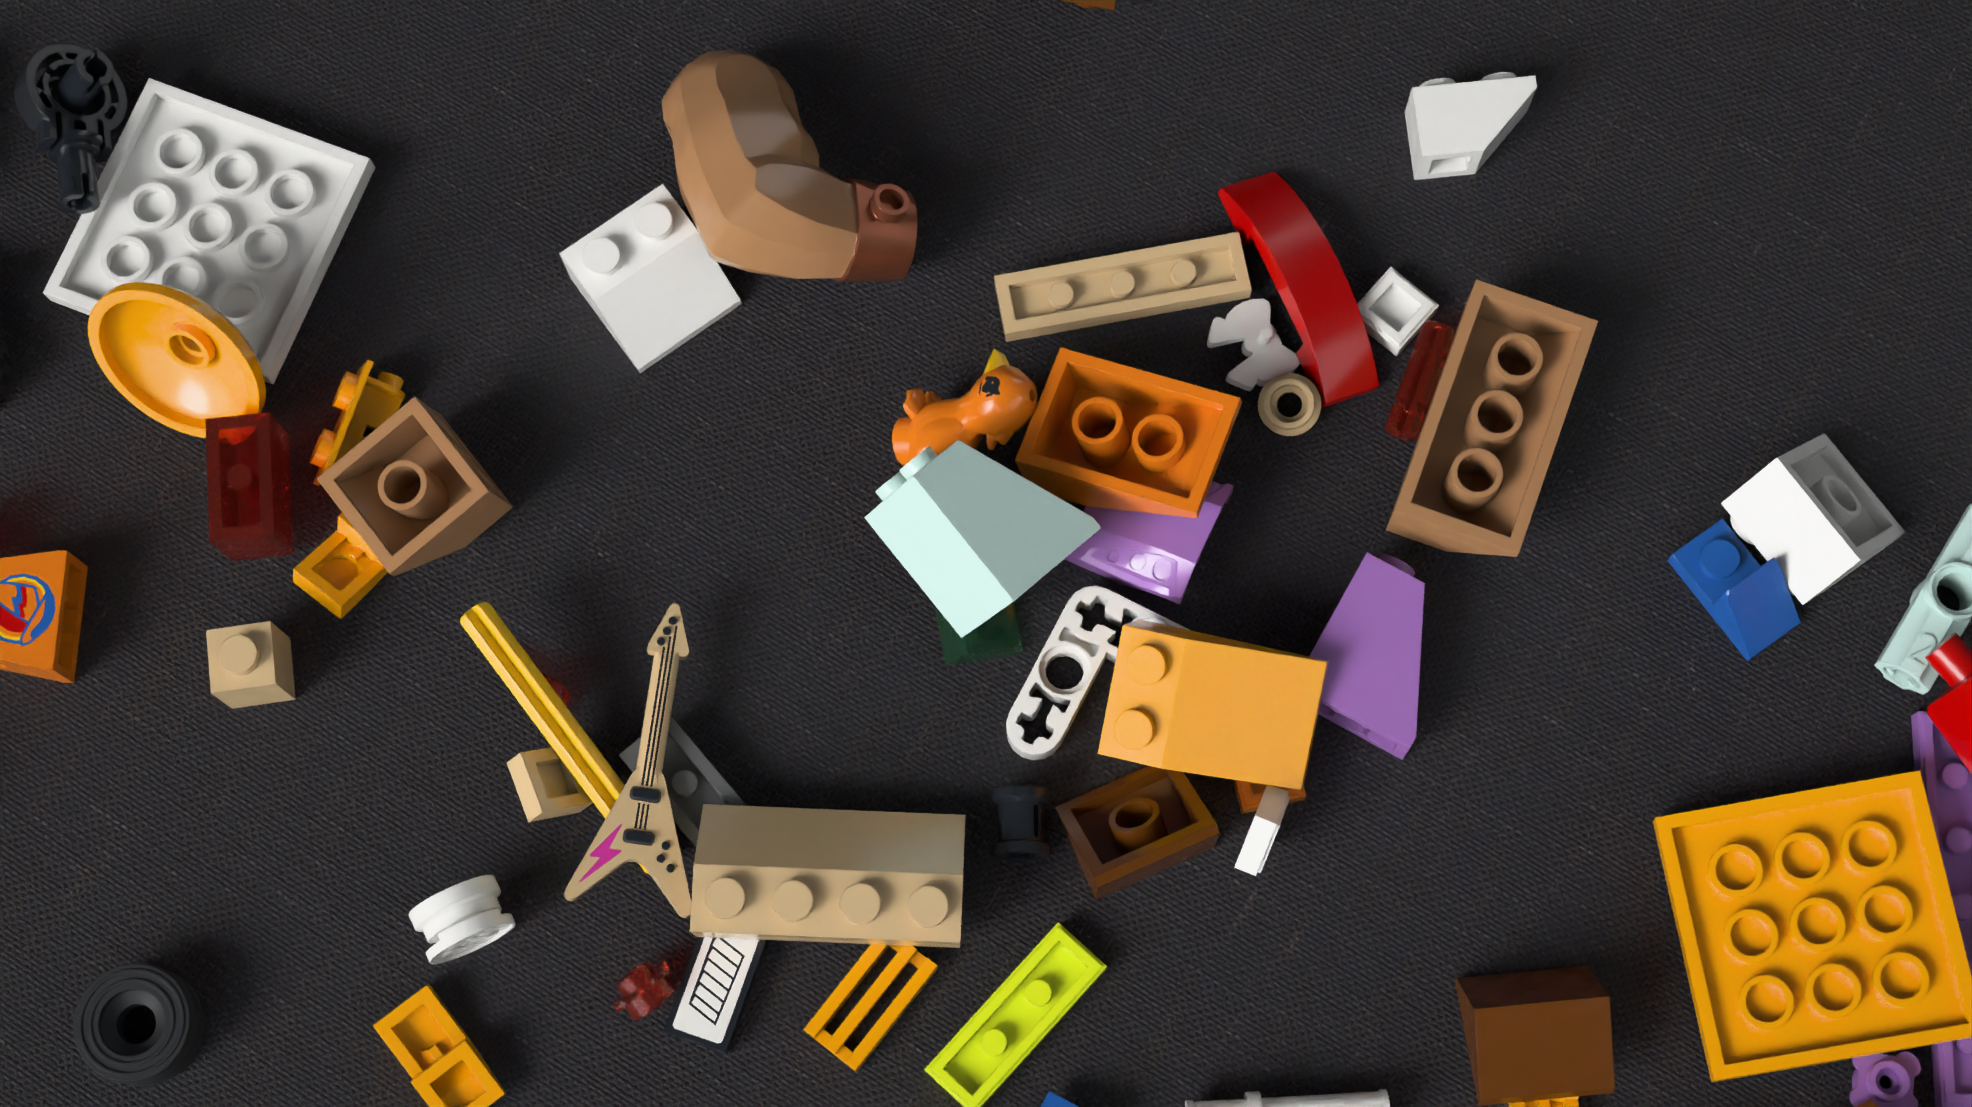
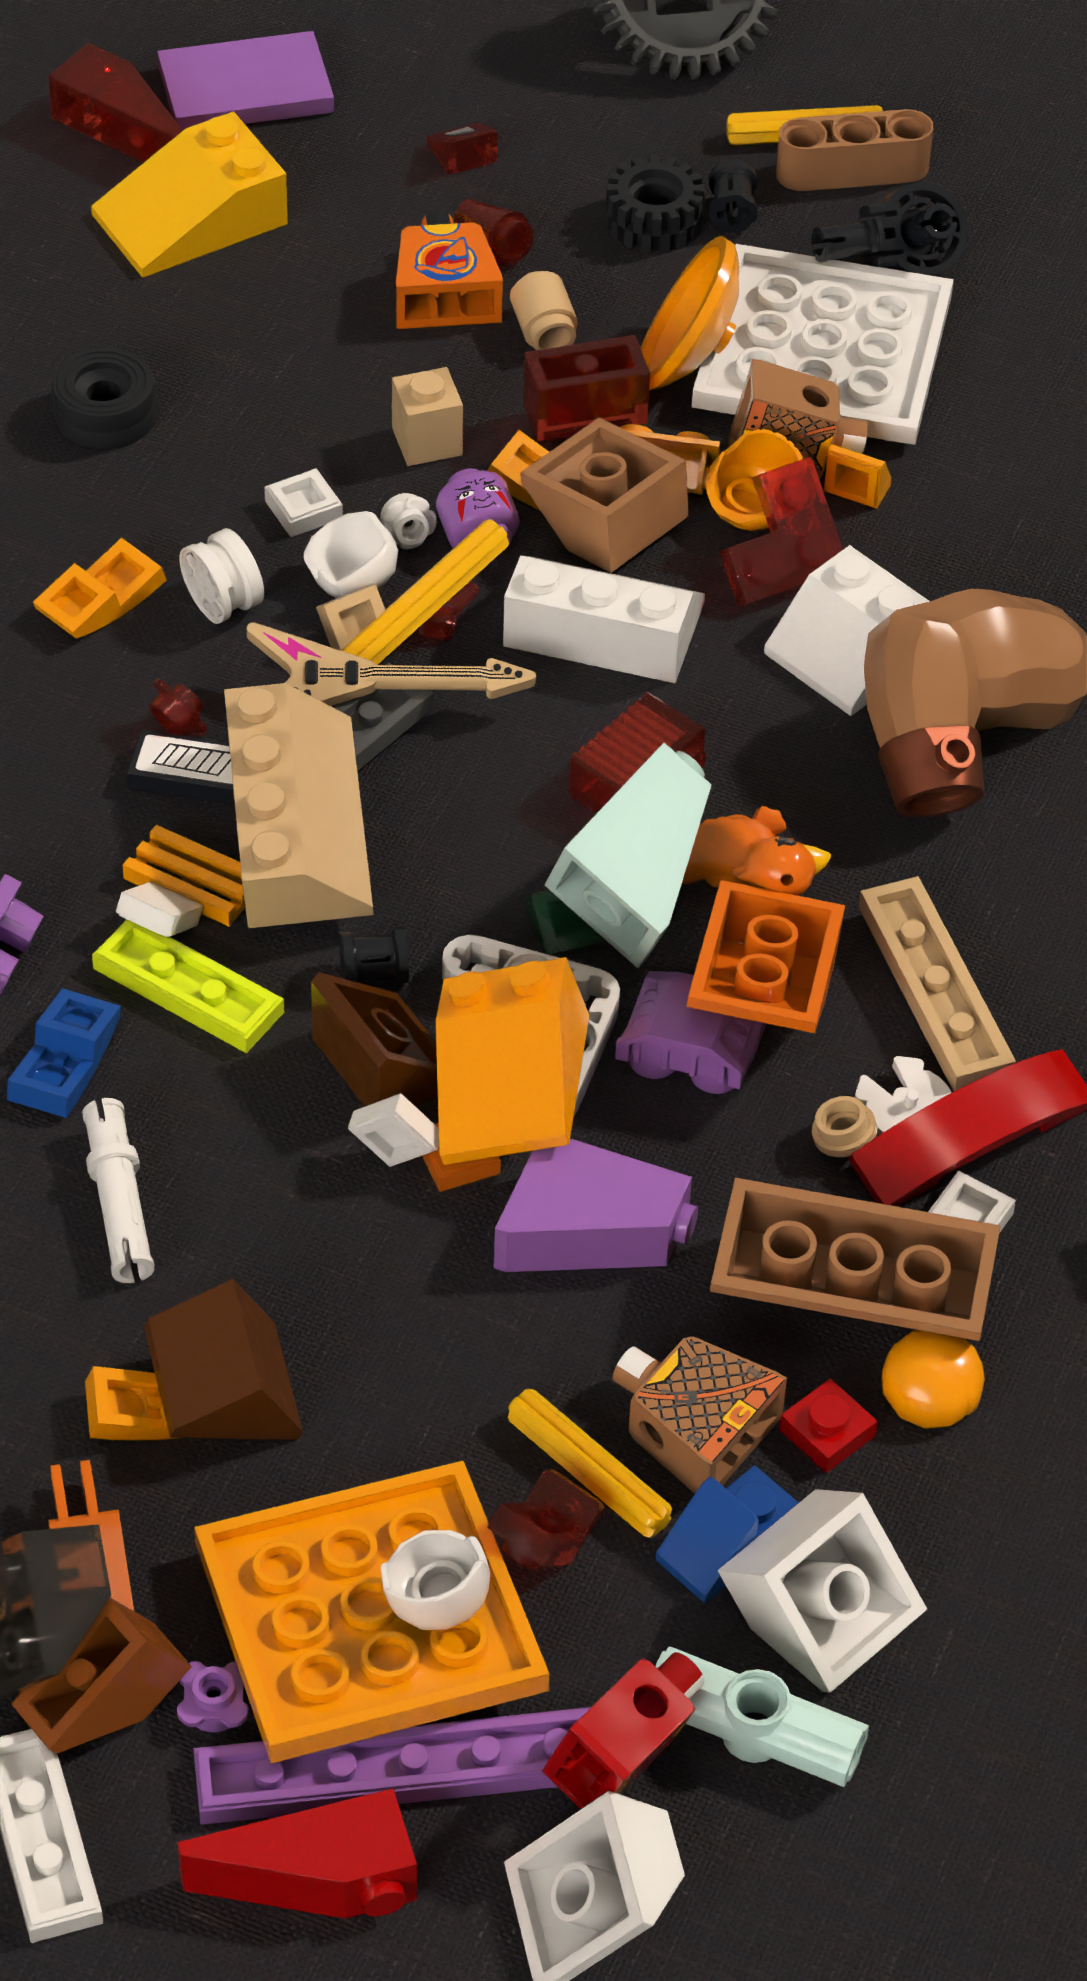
camera: 75 degrees right, 25 degrees down
(101, 515) = (544, 310): none -> tan brick
(339, 818) = (303, 502): none -> white tile
(350, 287) = (800, 409): none -> medium nougat torso
(402, 709) = (403, 509): none -> white plate
(406, 631) = (471, 499): none -> medium lavender head
(419, 234) = (856, 476): none -> light orange slope
(426, 333) = (731, 475): none -> light orange hair
(454, 774) = (351, 554): none -> white hair
(520, 307) = (799, 539): none -> clear red plate
(571, 521) = (599, 618): none -> white slope
(796, 519) = (626, 745): none -> clear red brick
(924, 1037) = (159, 909): none -> white tile
(1603, 384) = (932, 1379): none -> light orange hair
(1613, 593) = (699, 1408): none -> medium nougat torso
(1623, 482) = (828, 1425): none -> red plate
(1649, 703) = (589, 1463): none -> yellow axle
(1735, 754) = (548, 1524): none -> clear red bracket
(1838, 857) = (436, 1579): none -> white hair

